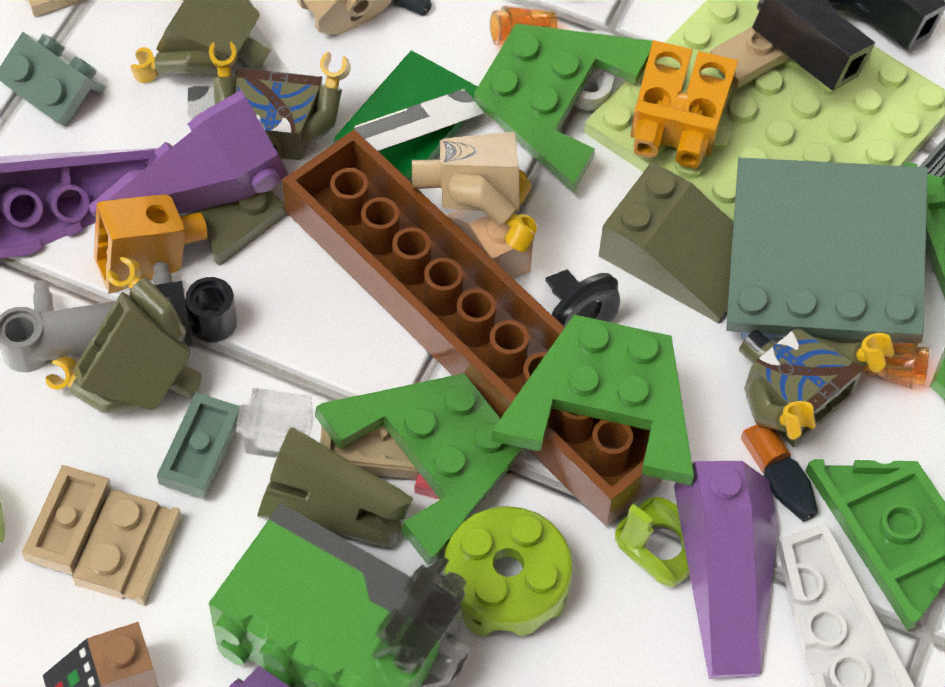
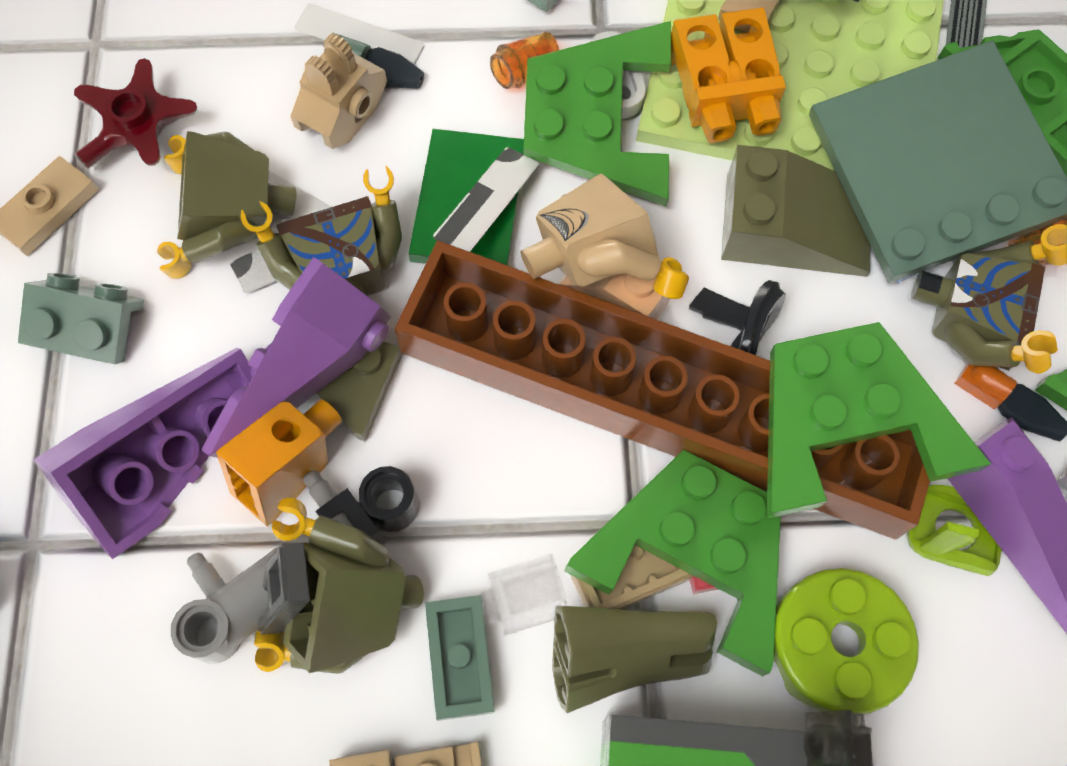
camera: 25 degrees left, 10 degrees up
(92, 321) = (286, 587): none -> dark grey tile

